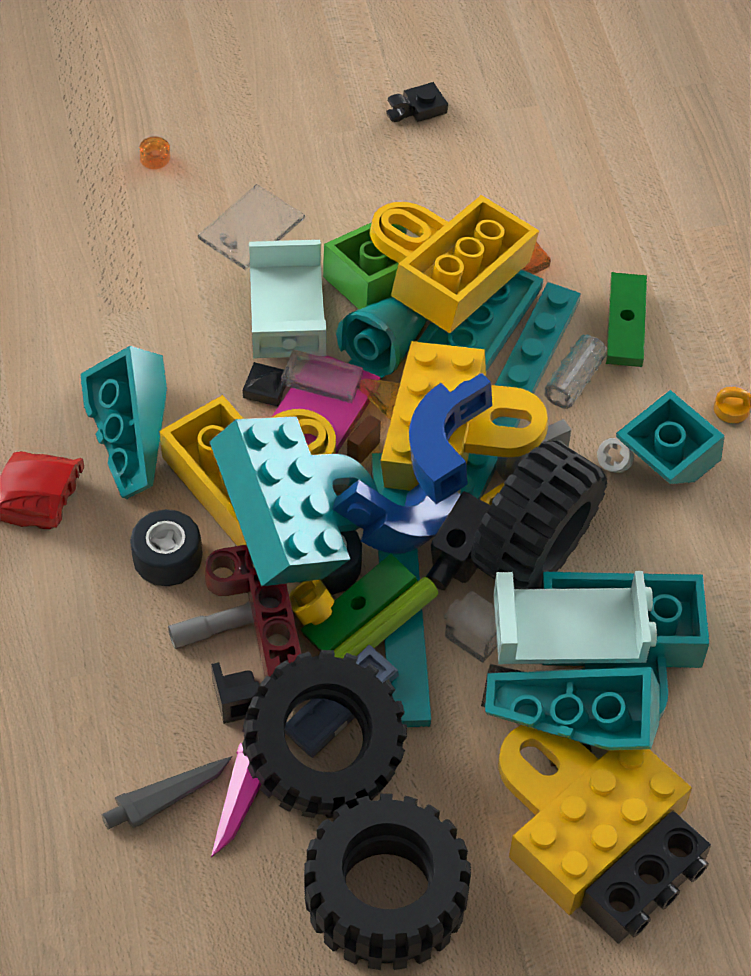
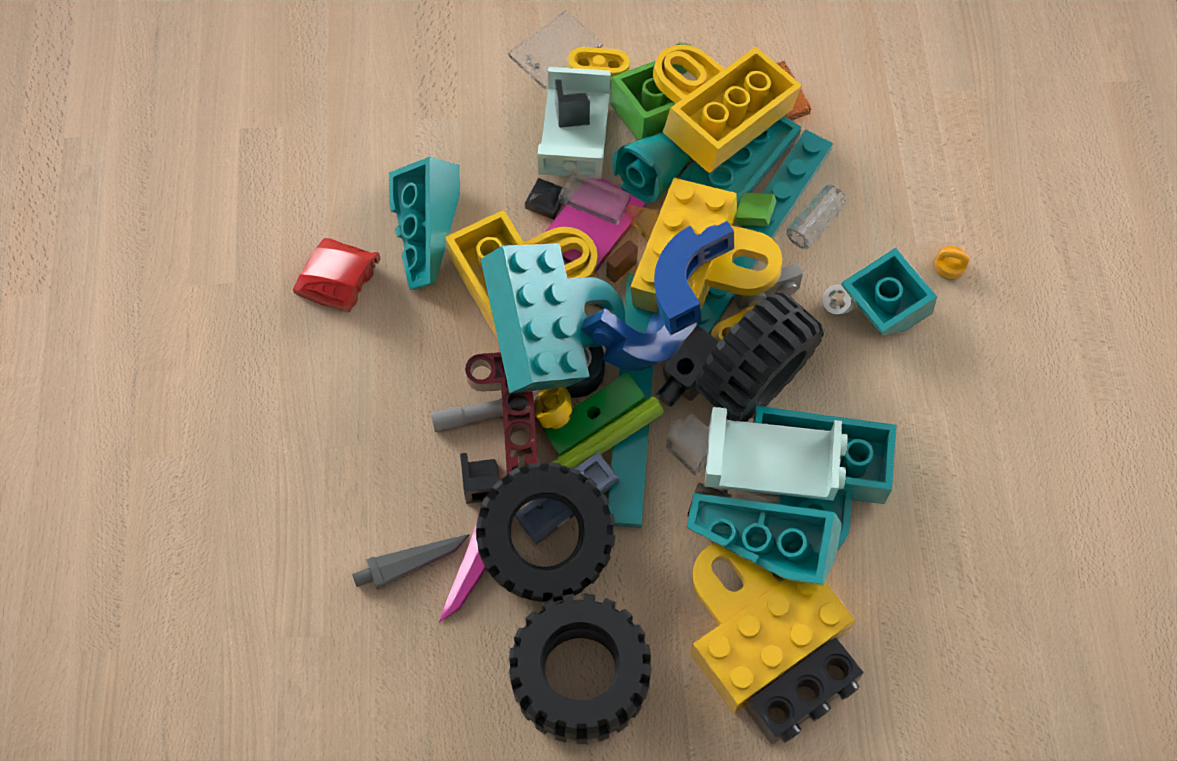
camera: 10 degrees right, 10 degrees up
(166, 547) = (434, 329): black wheel -> none
(281, 284) = (571, 108): none -> black panel
(304, 229) = (599, 59): none -> yellow plate
(507, 367) = (755, 209): none -> bright green tile
(626, 319) = (869, 172): green tile -> none

